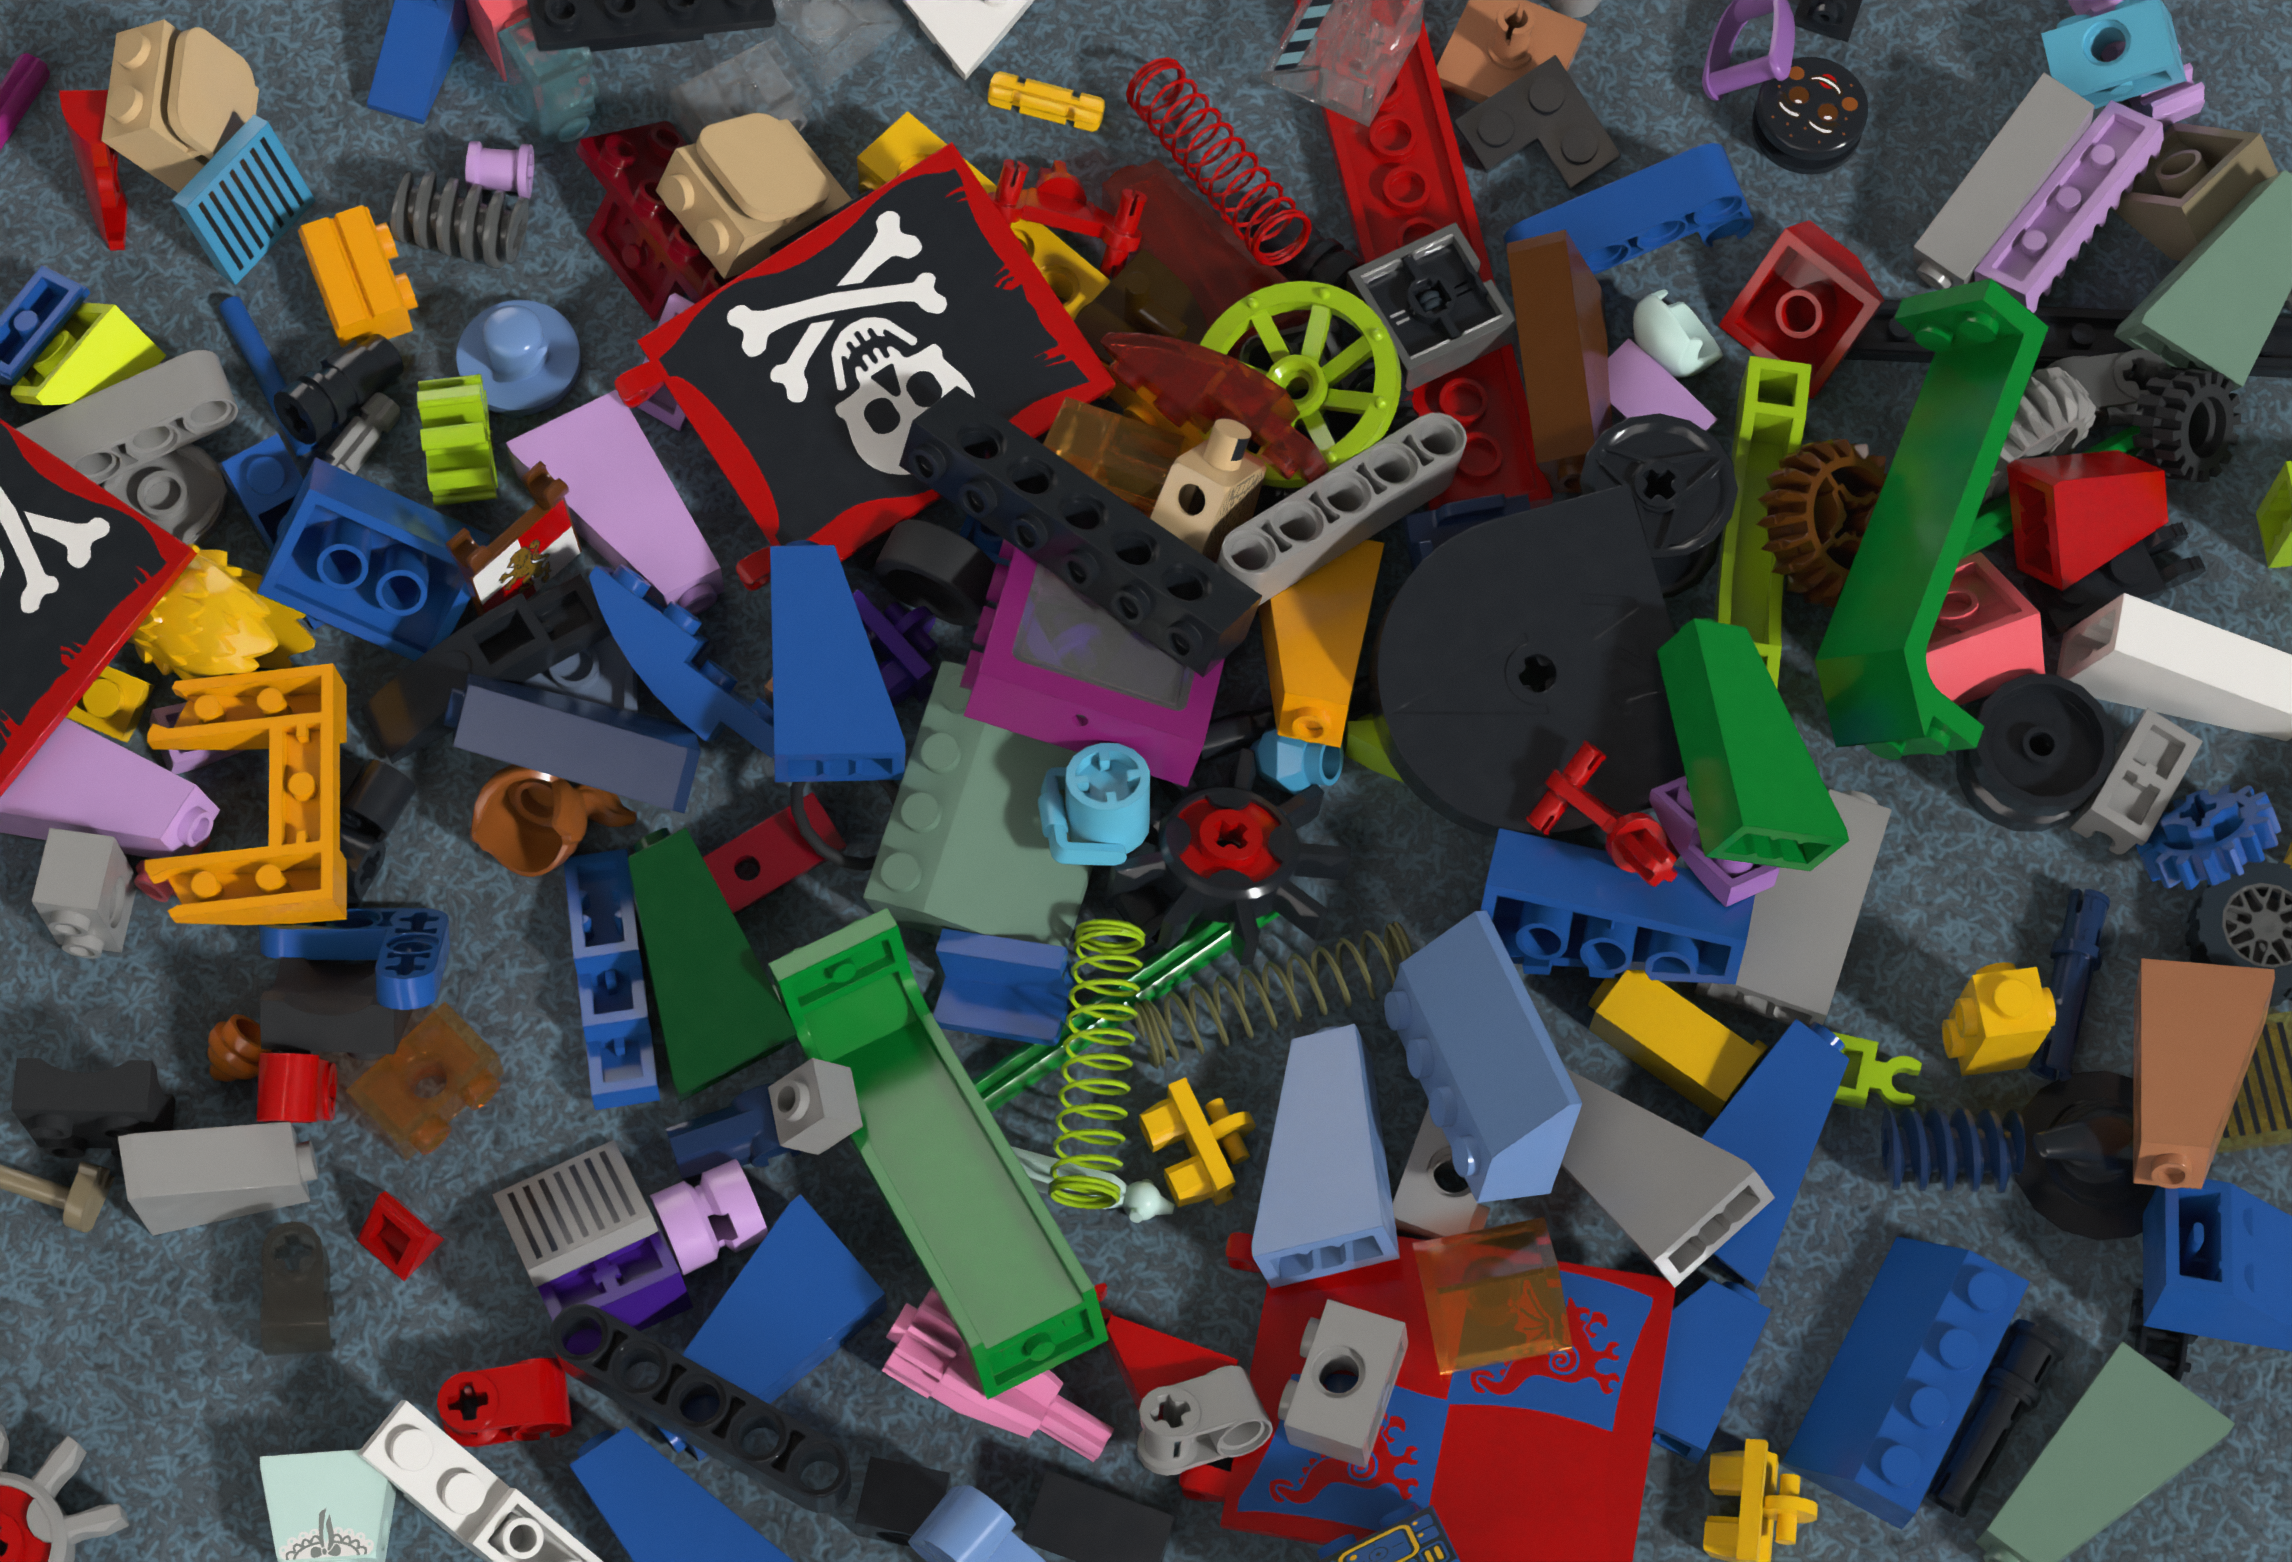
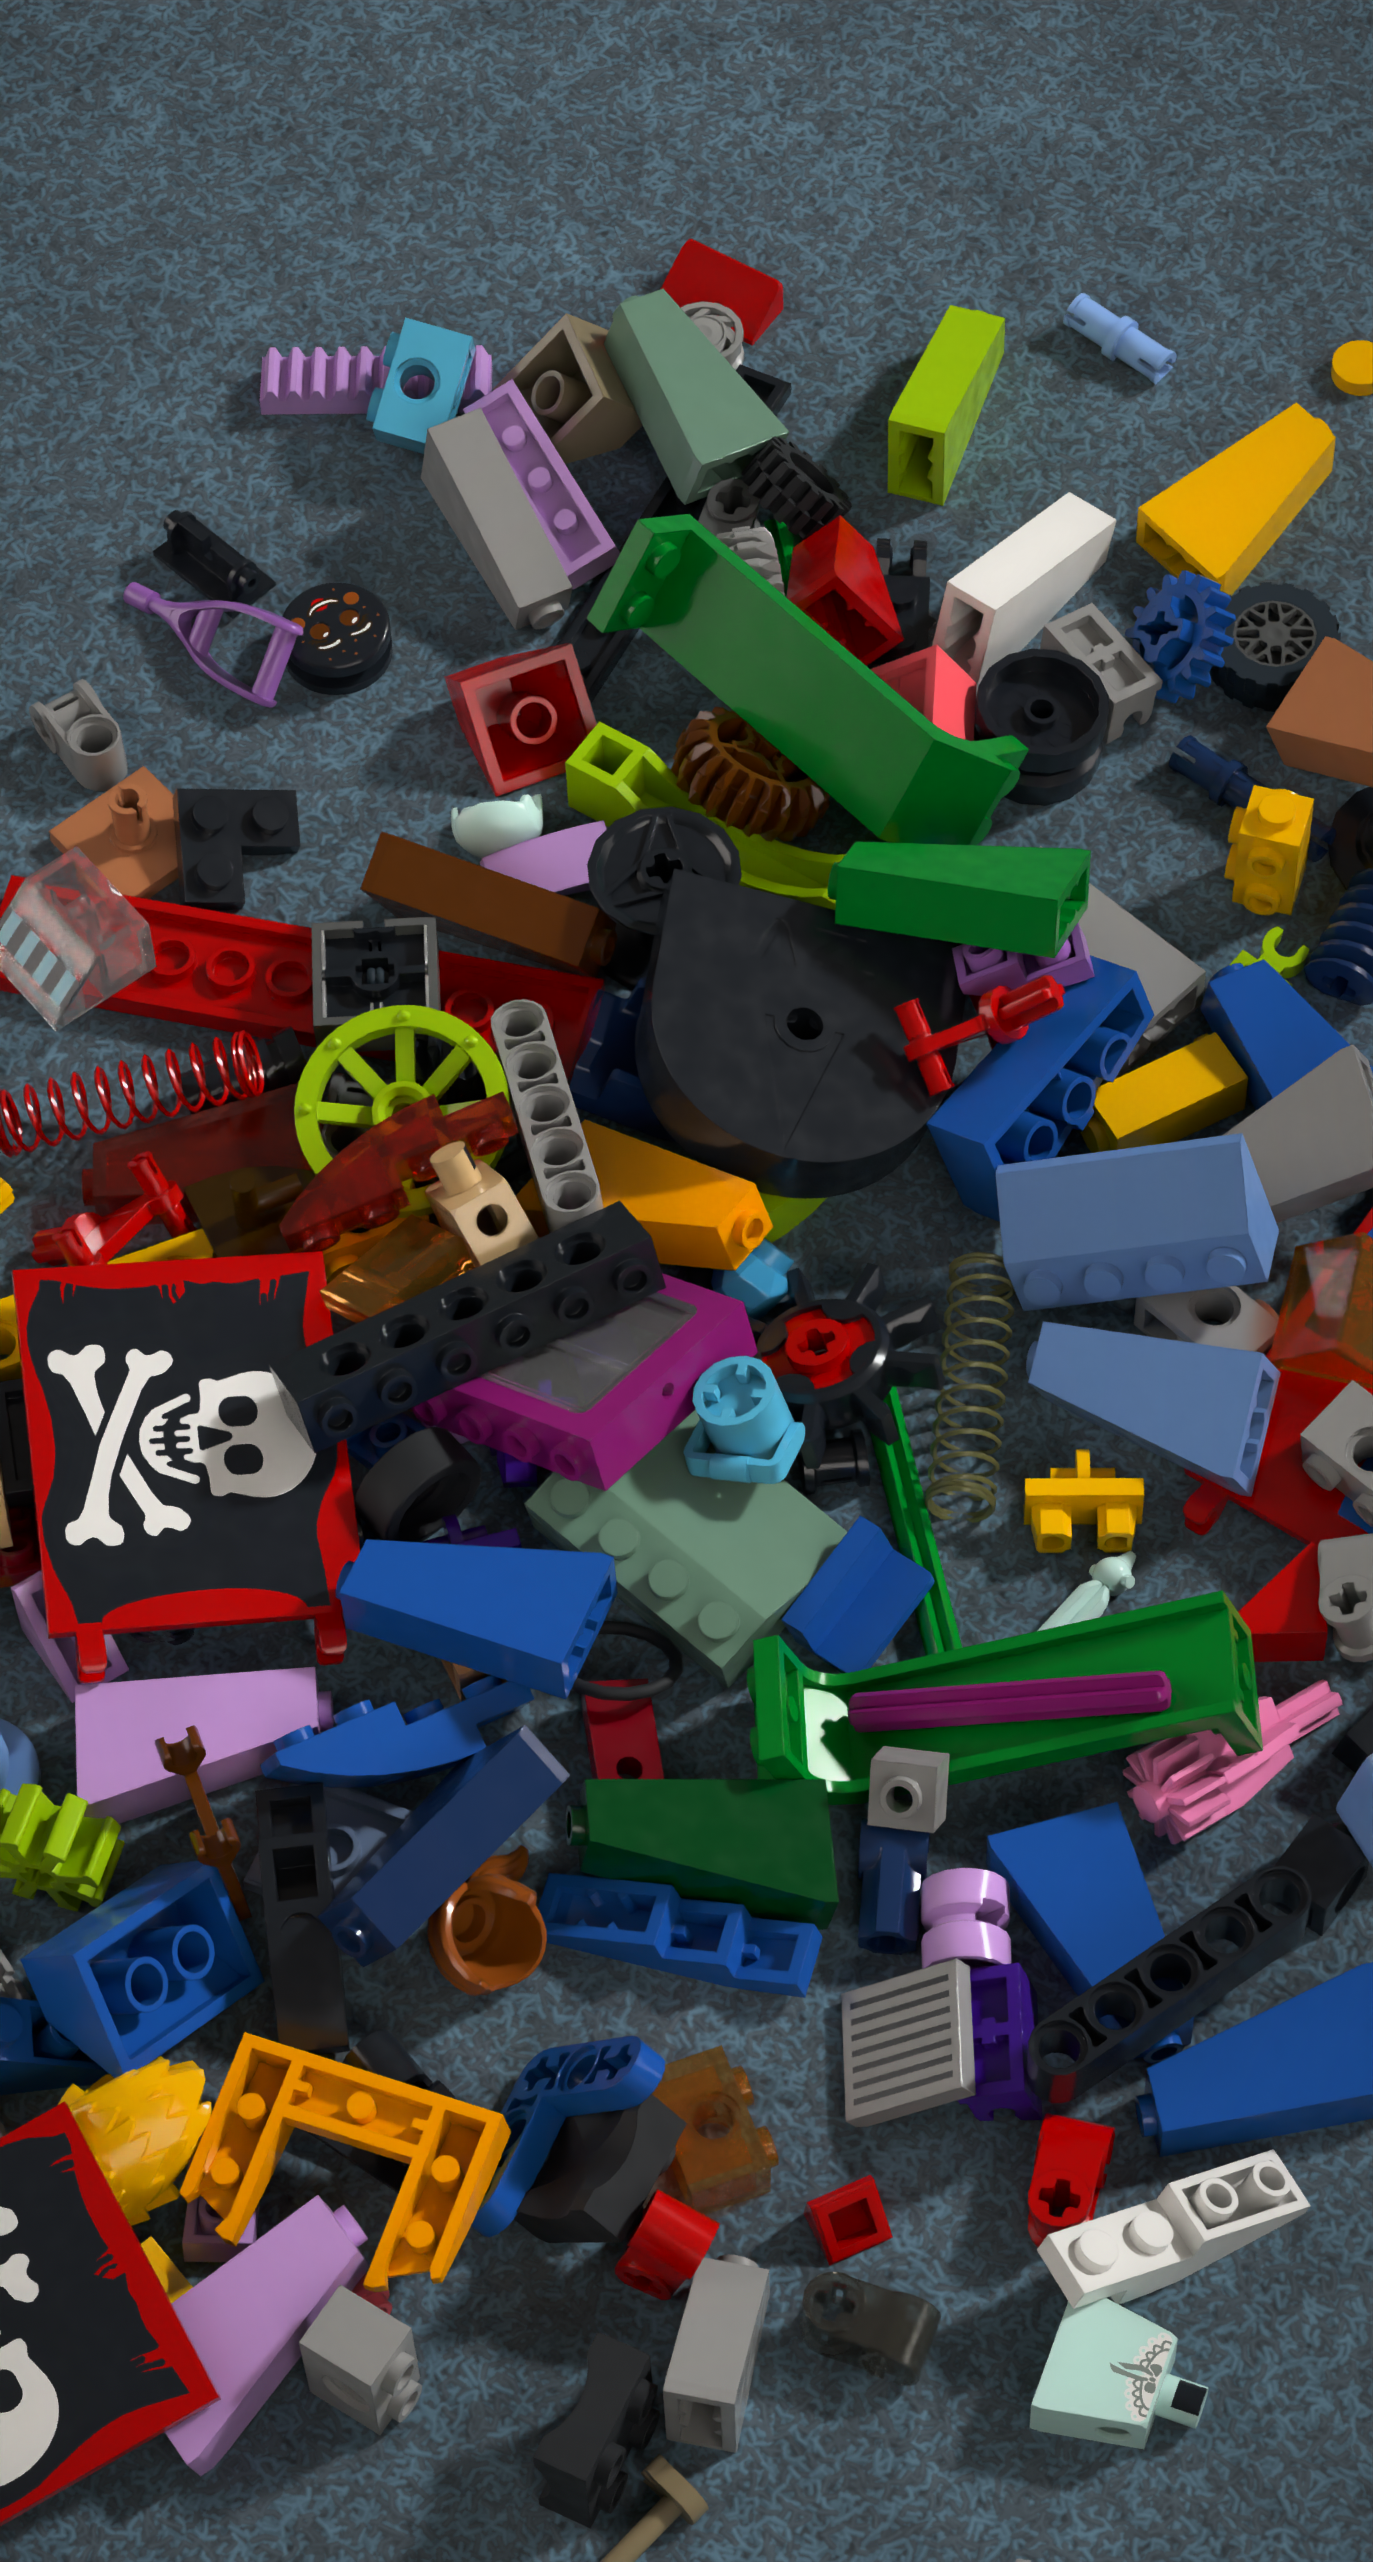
camera: 60 degrees left, 10 degrees down
(235, 1049) = (587, 2296): orange plate -> none
(932, 1157) = (1010, 1701): none -> magenta axle
(1107, 1192) = (864, 1478): lime piece -> none
(1649, 210) = (367, 800): blue beam -> none

